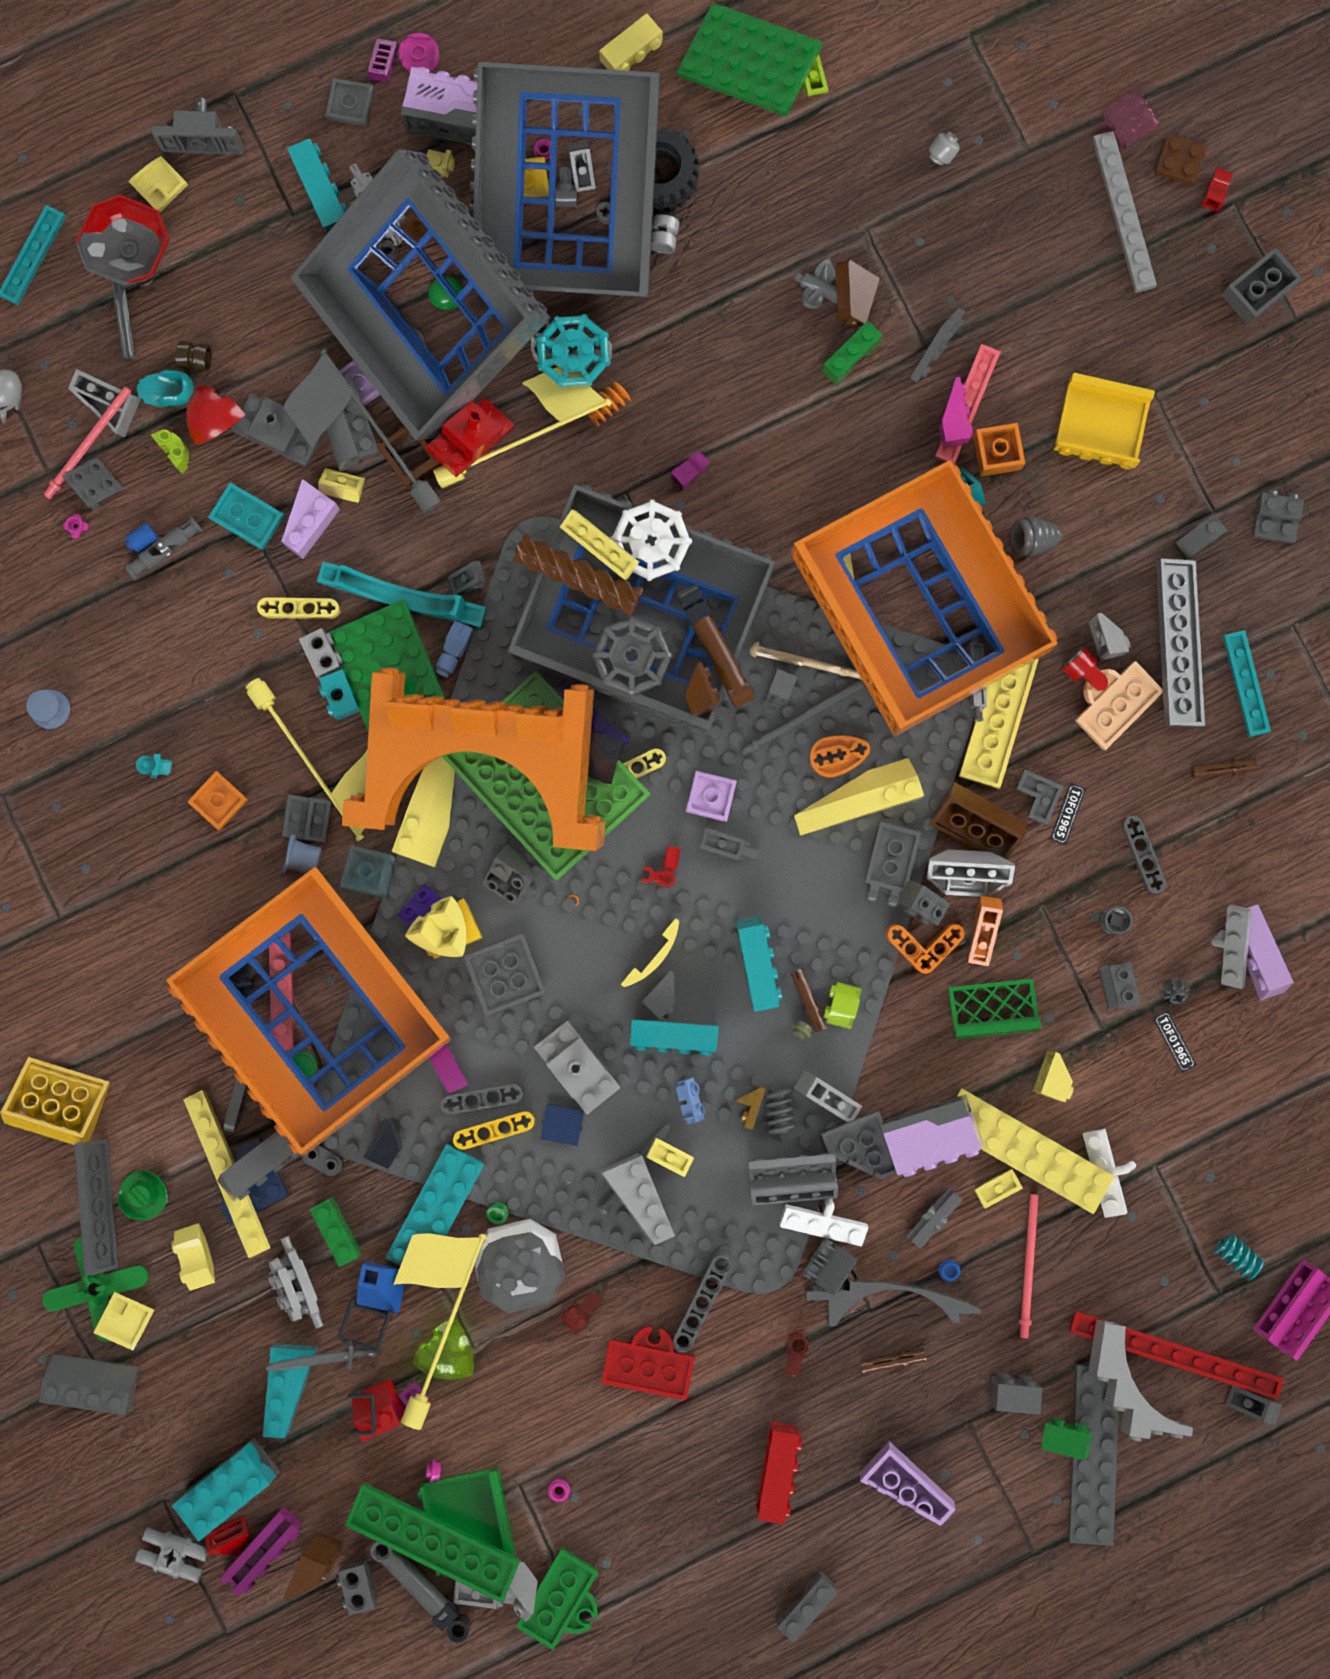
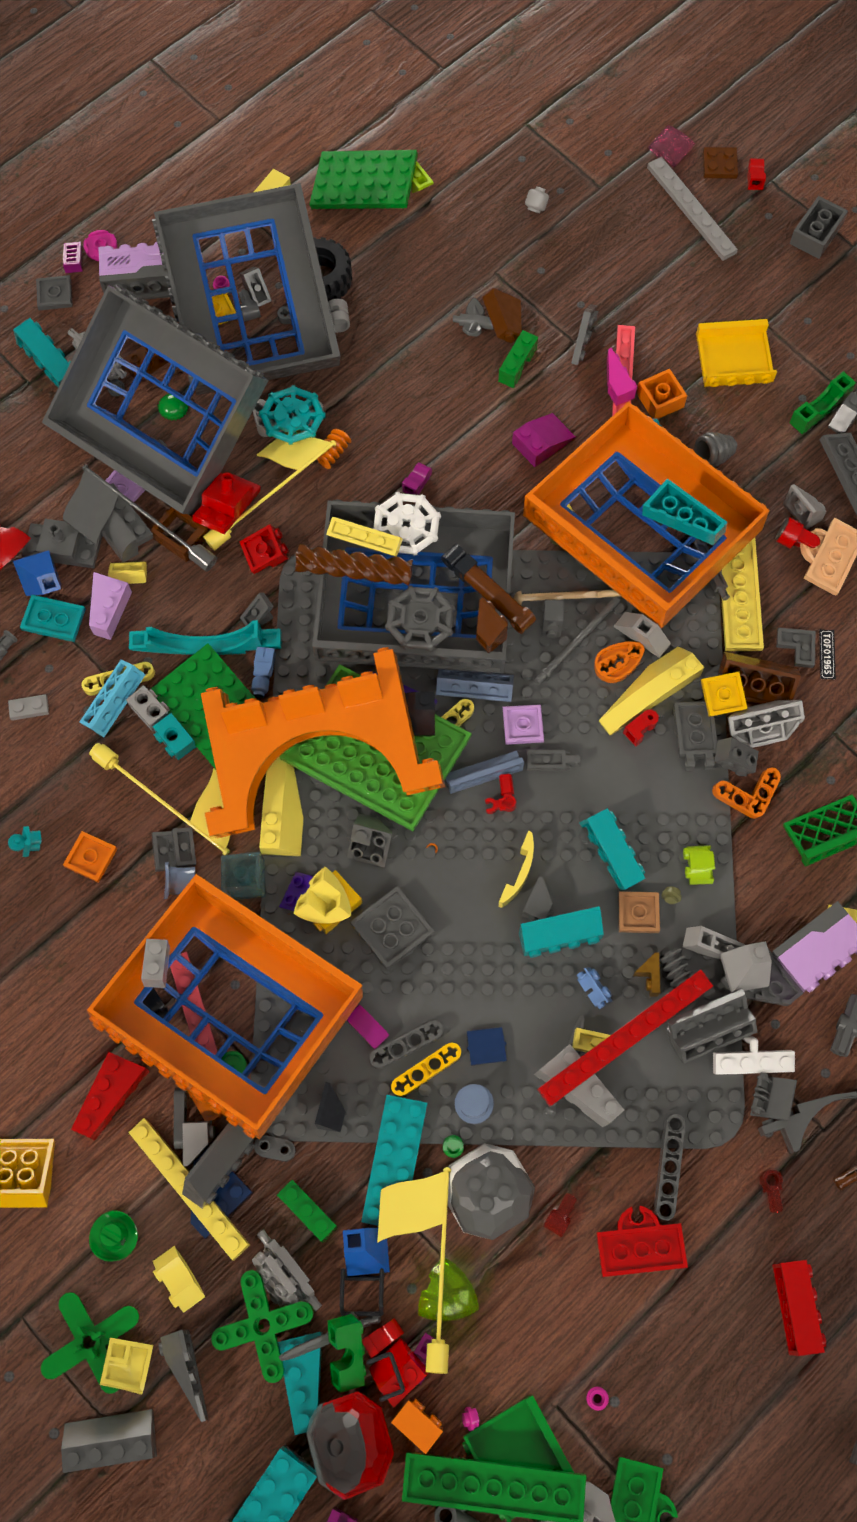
camera: 15 degrees left, 15 degrees down
(96, 1206) = (71, 1258): dark grey plate -> none
(172, 1055) = (108, 1094): none -> red wedge
(177, 1335) = (180, 1357): none -> dark grey wedge
(195, 612) = (28, 707): none -> light grey plate
(243, 461) = (37, 574): none -> blue slope
(246, 954) = (155, 963): none -> light grey brick
(246, 1328) = (249, 1330): none -> green piece
(247, 1127) = (196, 1138): none -> light grey slope
(287, 634) = (113, 699): none -> medium azure fence
(310, 1464) = (350, 1445): none -> rock
(334, 1363) = (349, 1370): none -> green arch
(372, 1372) = (382, 1337): none -> red leg
(380, 1463) = (418, 1425): none -> orange brick
(496, 504) = (264, 549): none -> red plate
(531, 1178) = (474, 1103): none -> sand blue piece
(577, 1067) = (484, 989): light grey brick -> none
(653, 835) = (484, 772): none -> sand blue fence
(674, 738) = (475, 685): none -> sand blue fence
(699, 1167) = (624, 1038): none -> red plate
(762, 1037) = (639, 912): none -> medium nougat plate
(808, 1000) = (668, 868): reddish brown pin -> none
(844, 833) = (644, 722): none -> red leg
(847, 461) = (541, 438): none -> magenta slope
(849, 1132) = (747, 967): none -> light grey slope
(874, 732) = (644, 631): none -> light grey slope
(934, 832) = (723, 694): none -> yellow plate
(957, 621) = (684, 513): none -> teal wedge
(985, 930) = (796, 765): orange slope -> none
(1178, 516) = (832, 396): none -> green arch

